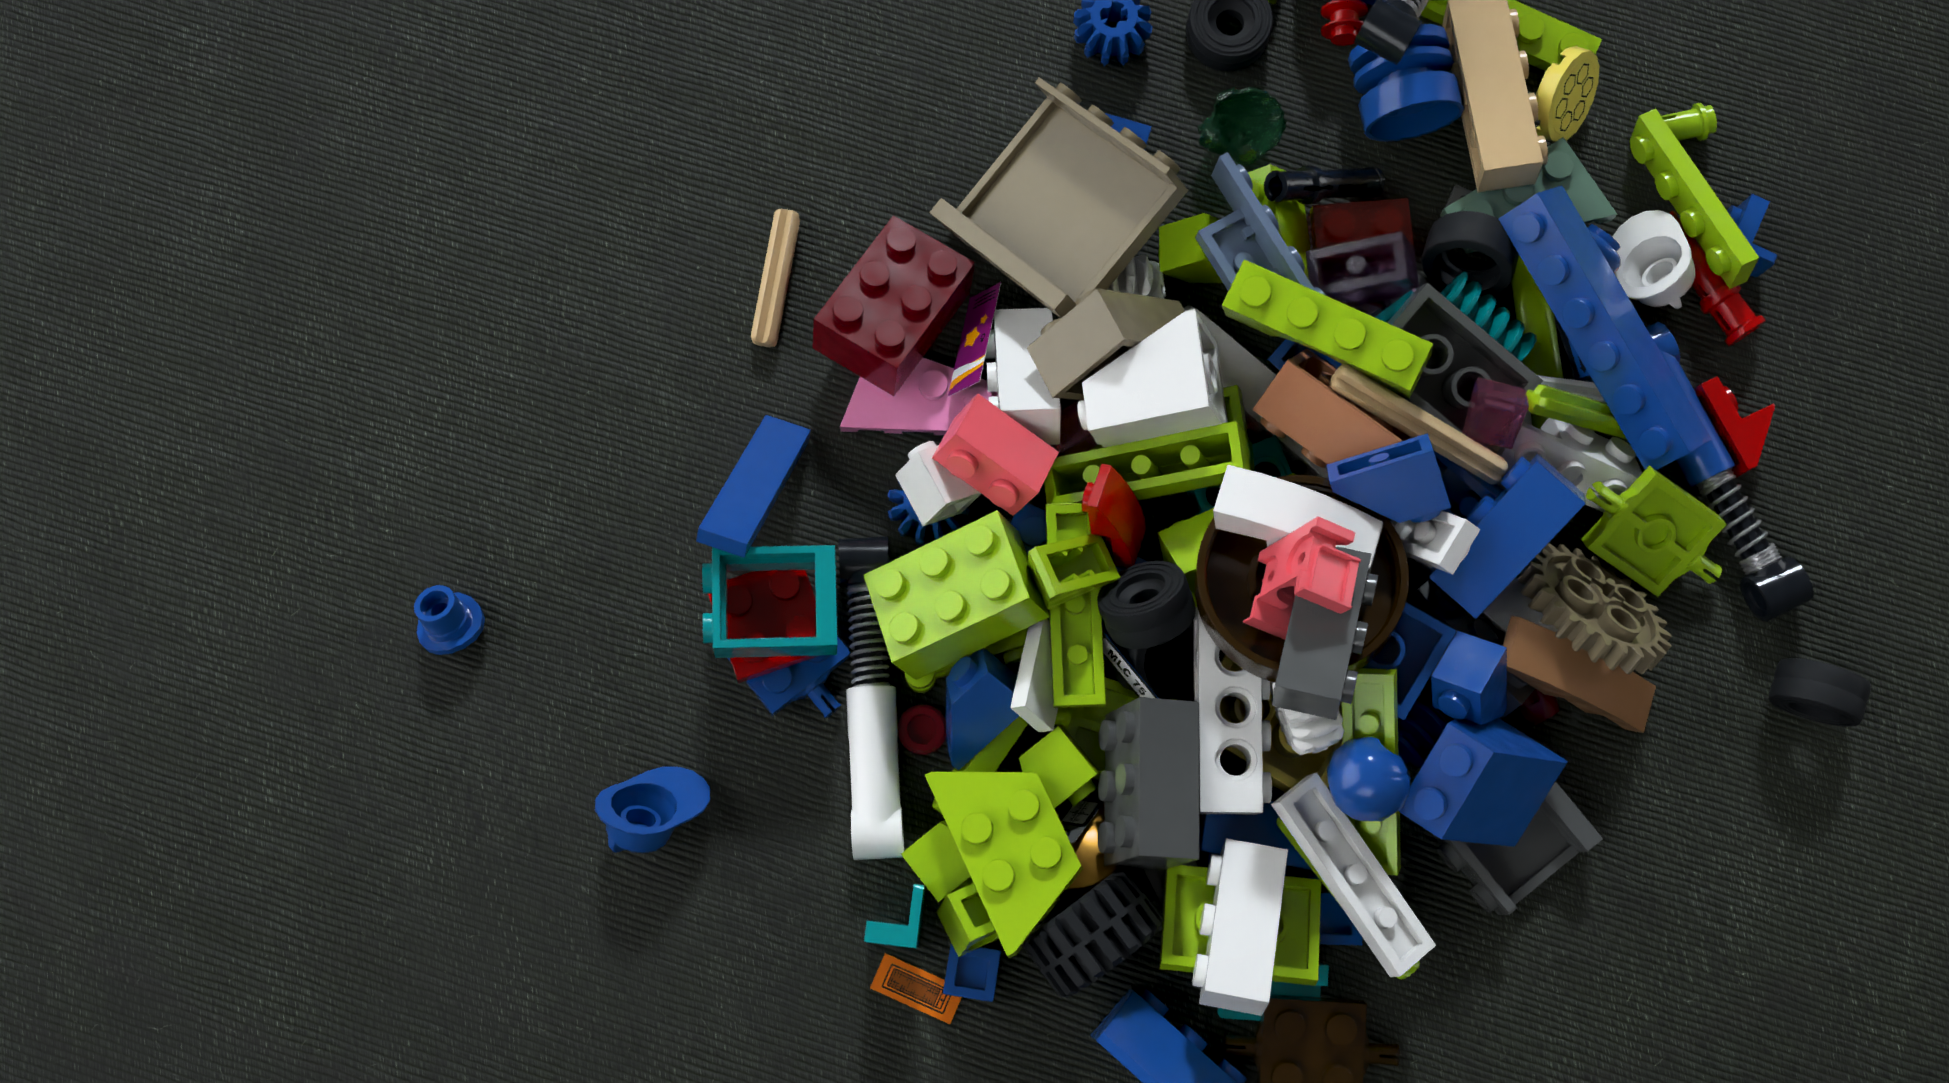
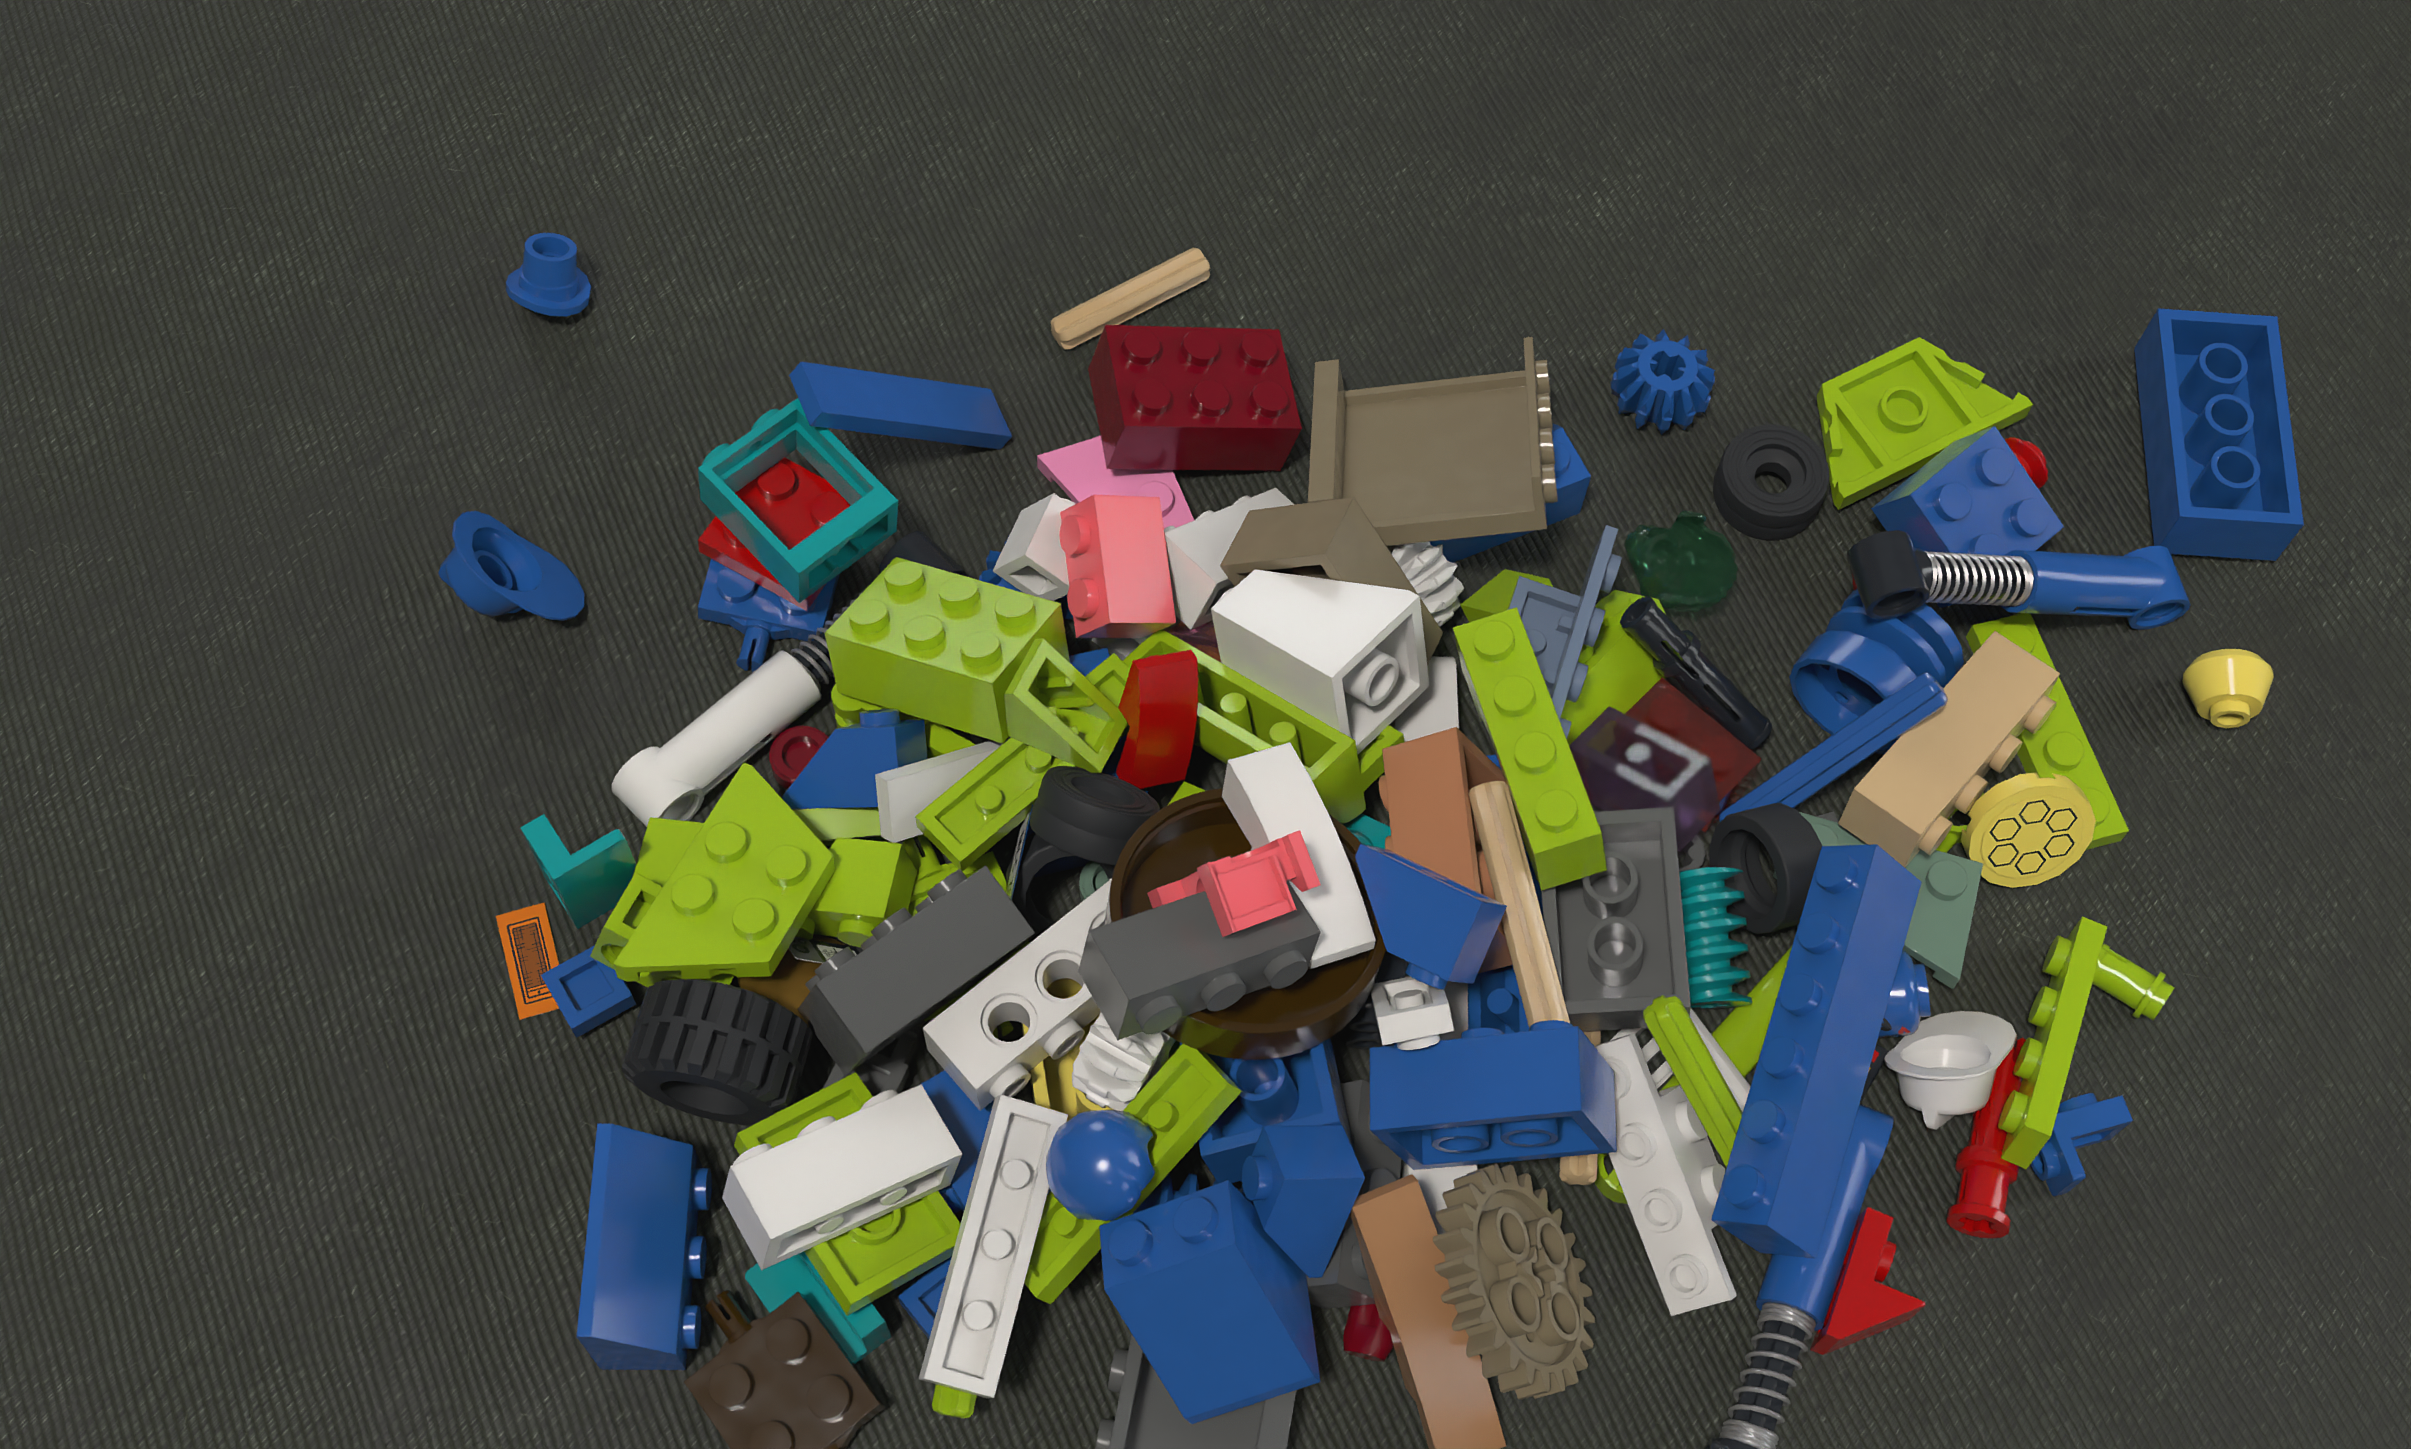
camera: 45 degrees right, 15 degrees down
(974, 339) = (1232, 494): magenta sticker -> none
(1445, 152) = (1848, 746): none -> blue axle
(1495, 413) = (1608, 986): clear pink slope -> none
(1654, 531) = (1661, 1287): lime plate -> none

